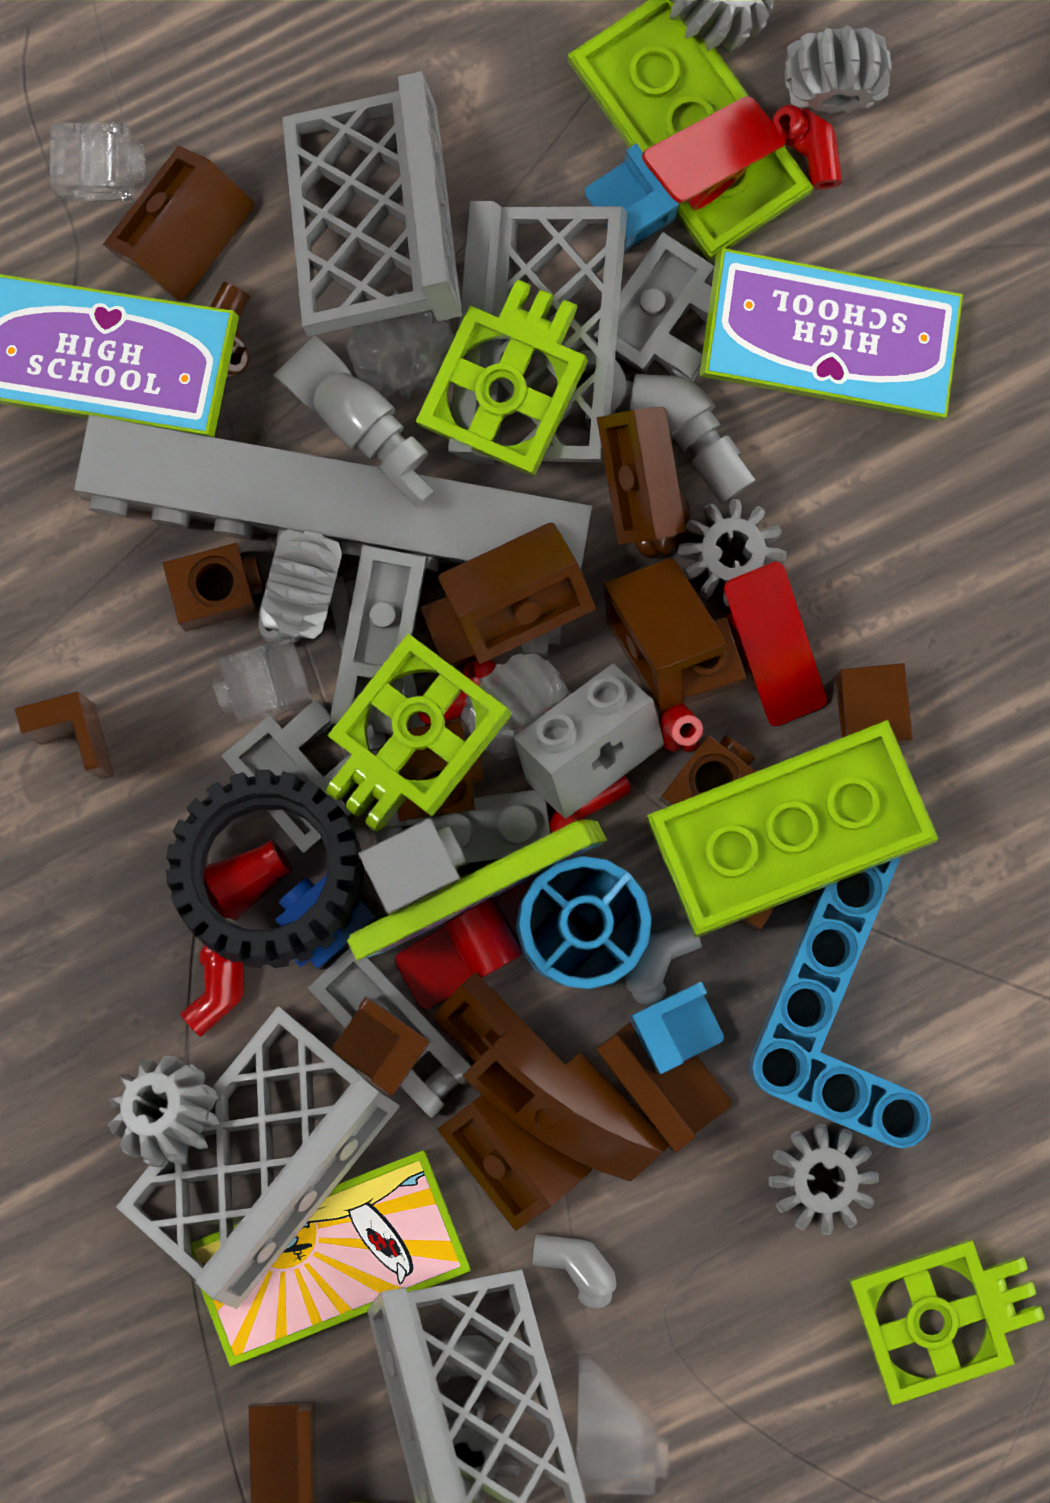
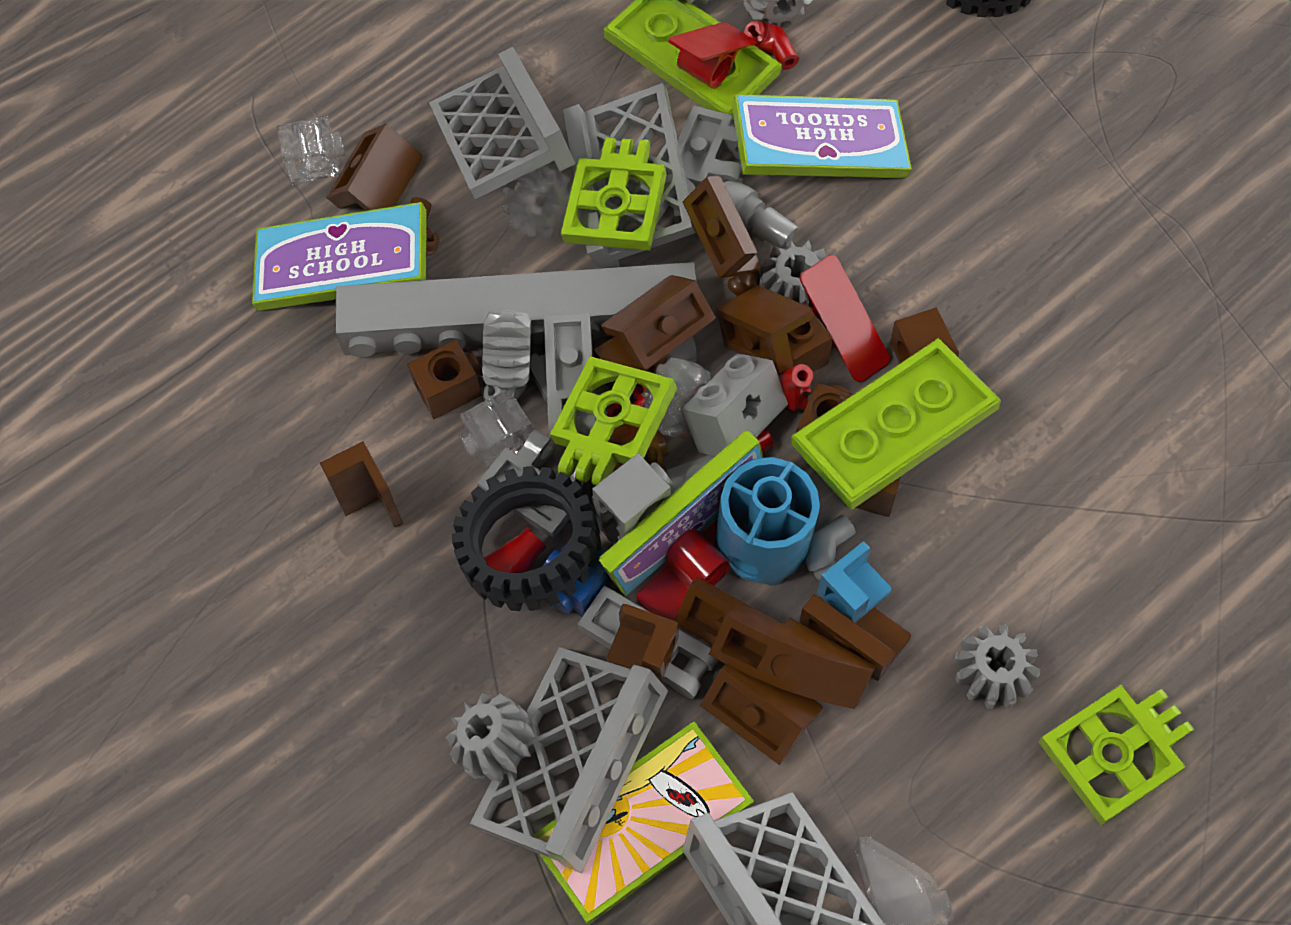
camera: 10 degrees left, 20 degrees down
(222, 992) = (515, 645): red arm -> none
(355, 415) = (523, 241): light grey piece -> none
(582, 1262) = (836, 774): light grey arm -> none
(639, 193) = (681, 88): dark azure panel -> none
(806, 1042) = (950, 574): dark azure beam -> none

